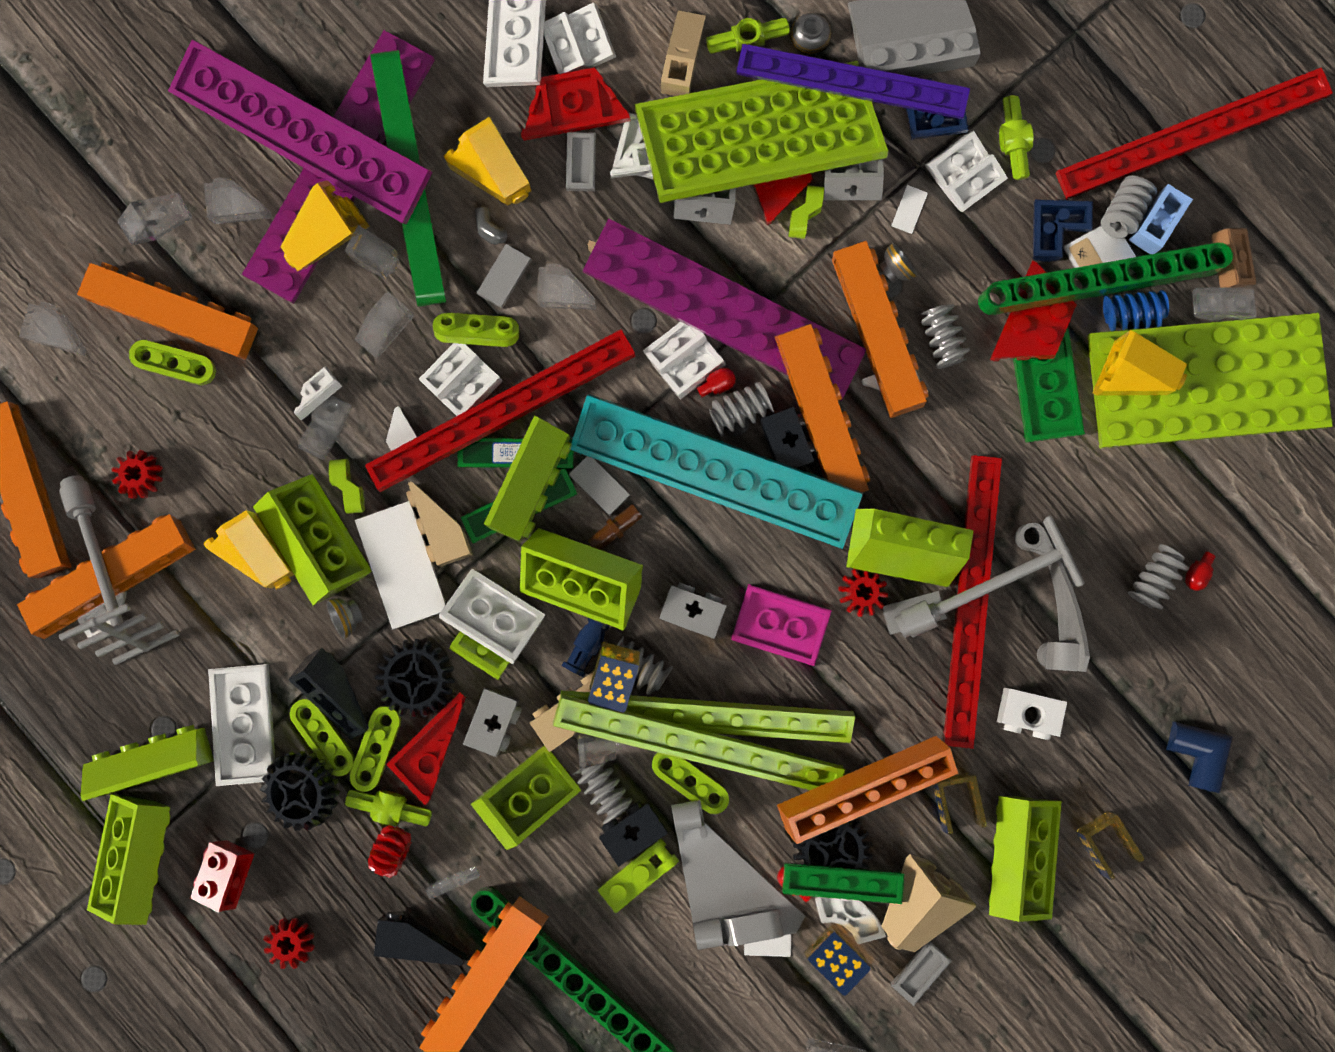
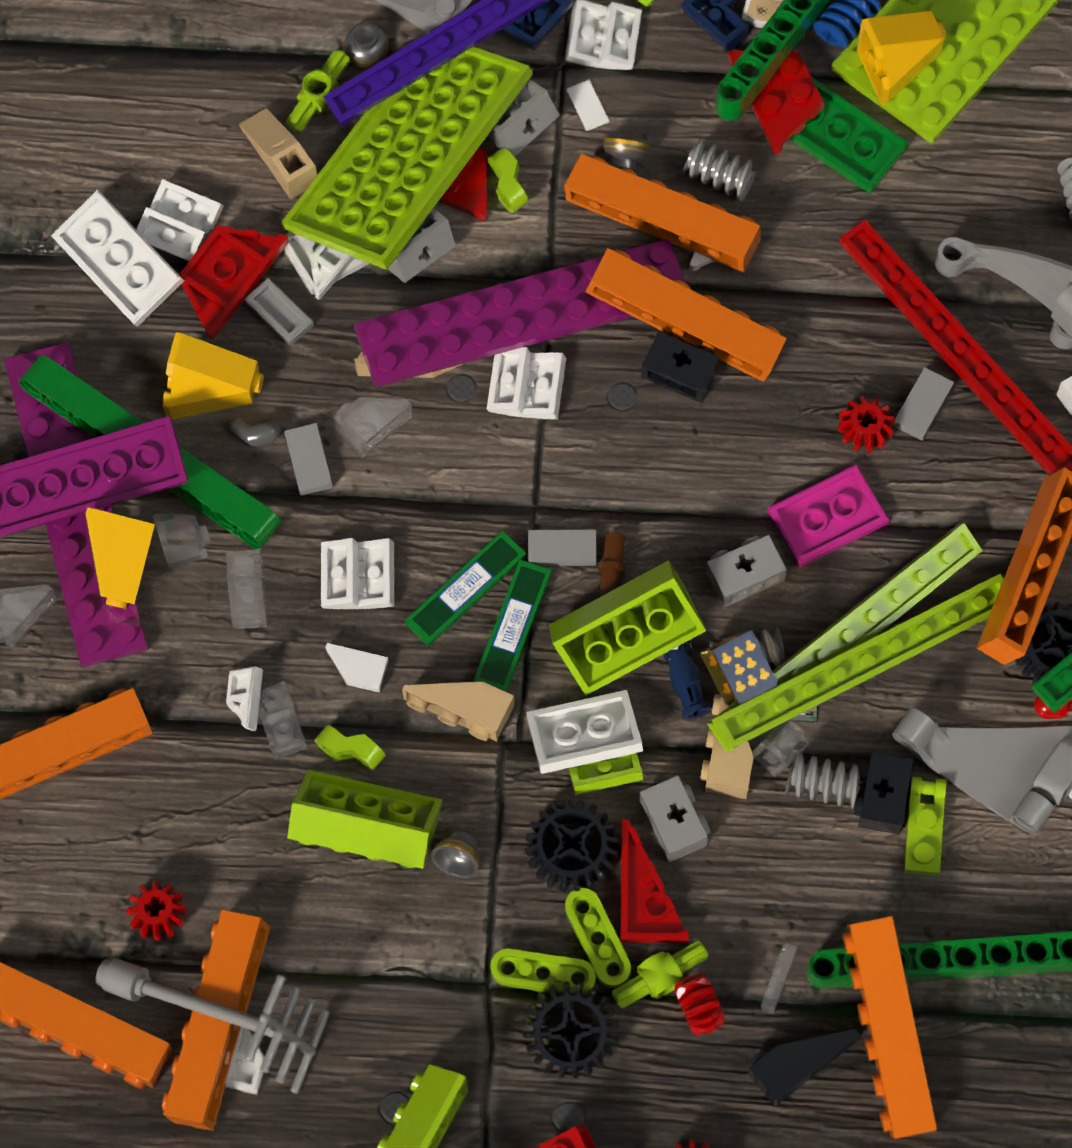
camera: 45 degrees left, 15 degrees down
(163, 355) = (102, 778): lime plate -> none
(241, 723) = (461, 1033): white tile -> none
(251, 550) = (324, 874): yellow slope -> none
(329, 690) = (510, 924): black slope -> none
(401, 565) = (463, 769): white tile -> none
(488, 333) = (329, 521): lime plate -> none
(500, 410) = (418, 565): red plate -> none
(526, 798) = (766, 853): lime slope -> none
(528, 479) = (502, 590): lime slope -> none
(700, 791) = (869, 703): lime plate -> none
(716, 471) = (647, 440): teal plate -> none
(717, 382) = (575, 375): red cylinder -> none
(740, 408) = (614, 374): light grey piece -> none
(908, 547) = (864, 348): lime slope -> none
(923, 617) = (935, 390): light grey piece -> none

